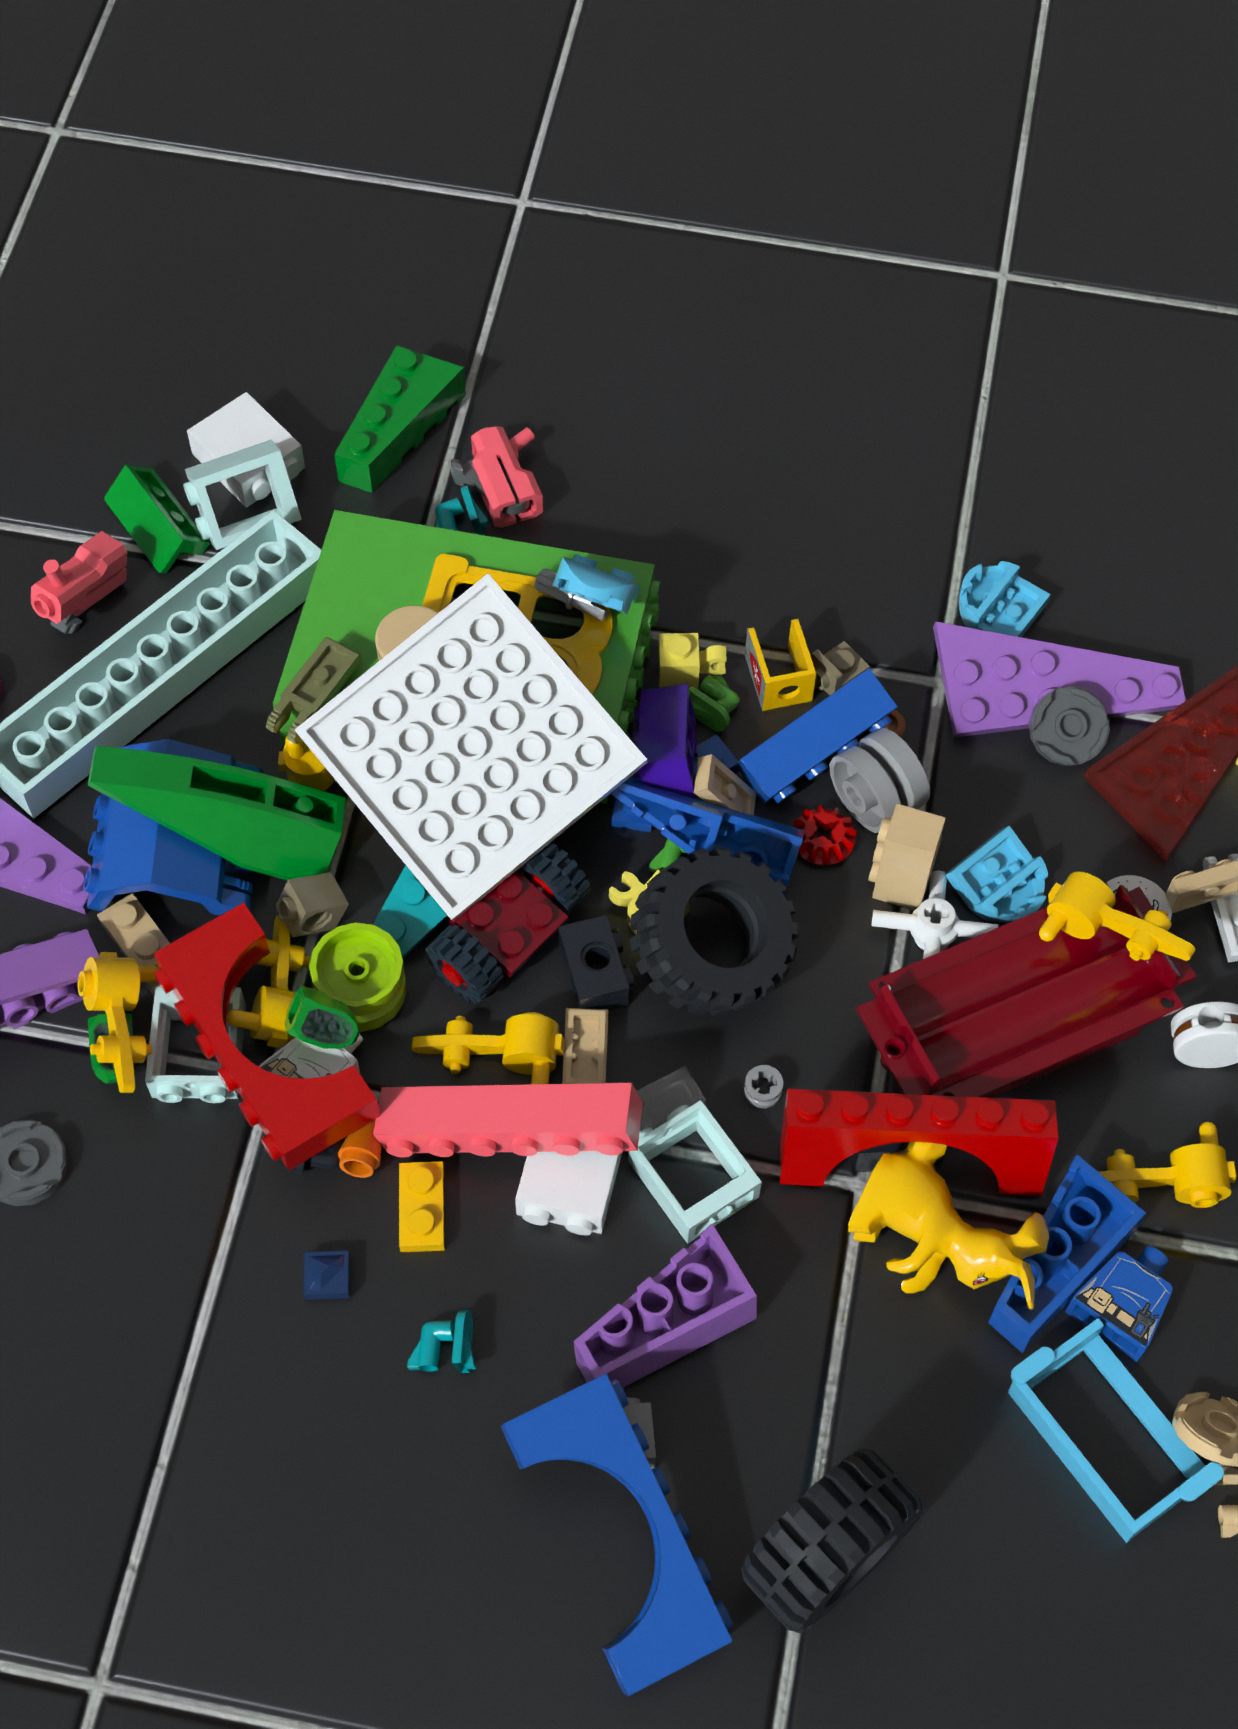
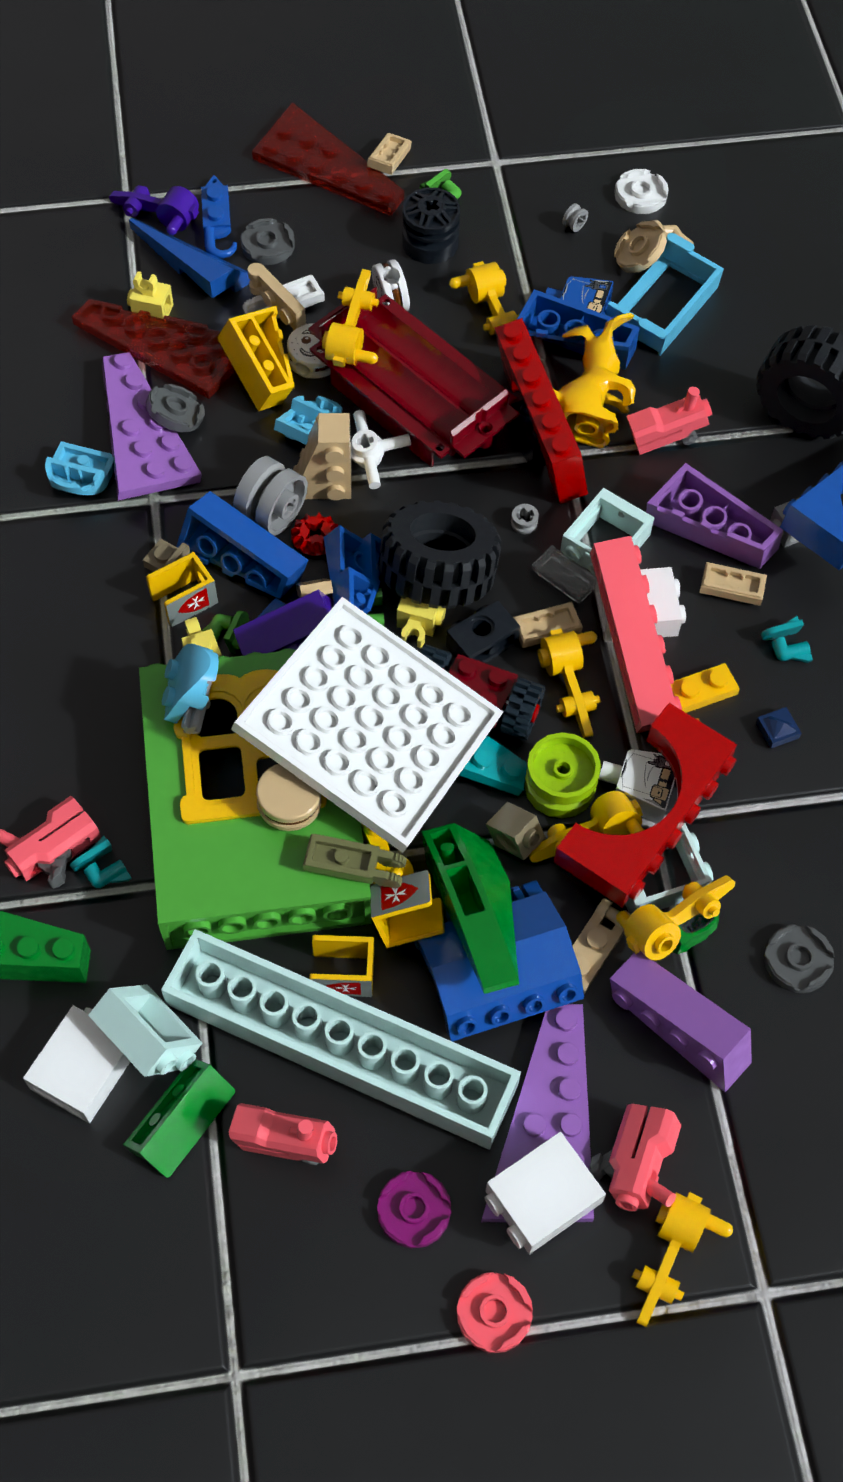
camera: 110 degrees left, 0 degrees up
(213, 683) = (345, 947): none -> yellow piece
(248, 740) = (407, 911): none -> piece
(321, 1020) = (619, 771): rock -> none
(560, 1309) = (733, 583): none -> tan plate
(848, 1314) = (670, 423): none -> coral piece
(1118, 829) = (258, 356): none -> yellow wedge

